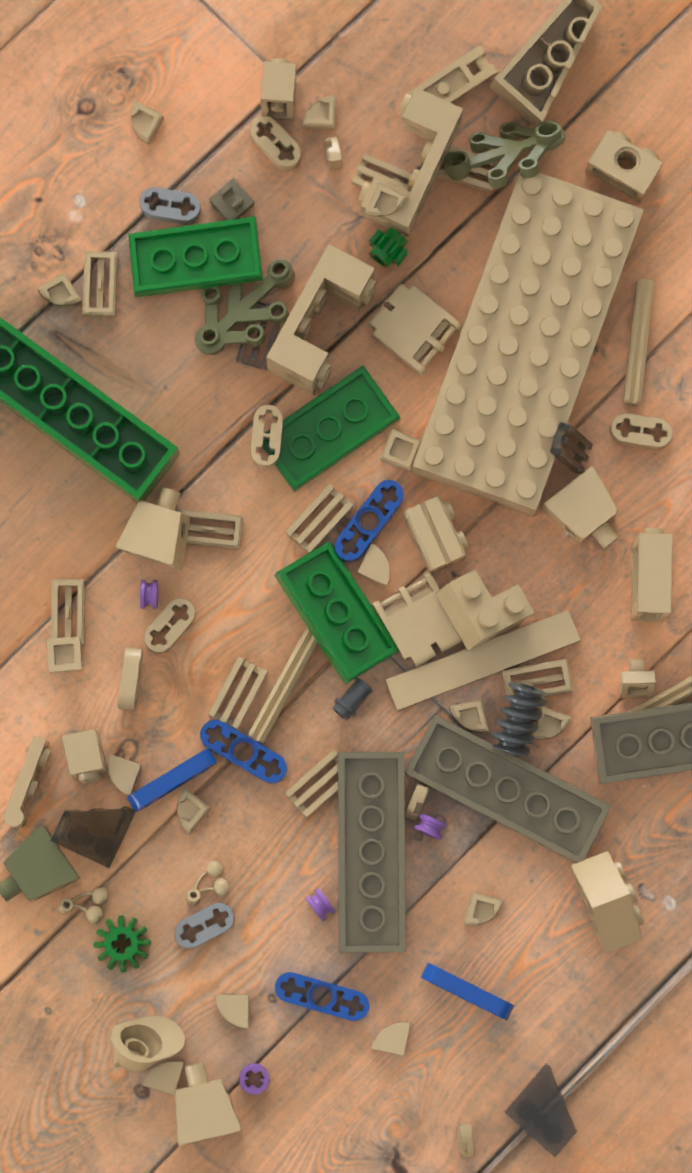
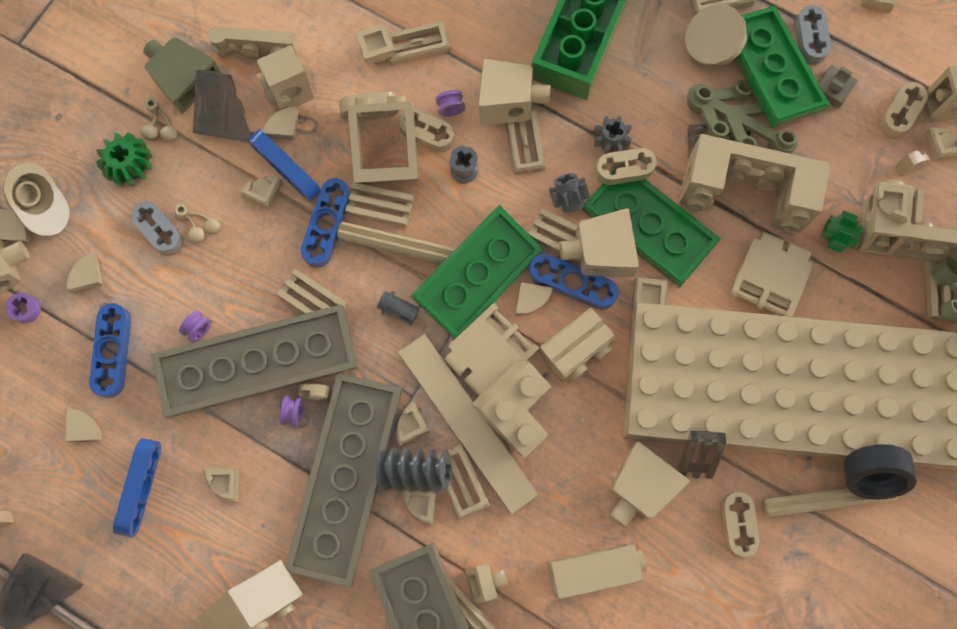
camera: 80 degrees right, 5 degrees down
(149, 305) = (716, 35): none -> tan tile
(209, 674) = (391, 173): none -> tan window
(211, 594) = (468, 157): none -> dark grey bush
(229, 449) = (616, 127): none -> dark grey gear
(279, 499) = (569, 192): none -> dark grey gear
(346, 481) = (604, 246): none -> tan torso
(628, 293) = (880, 472): none -> black tyre

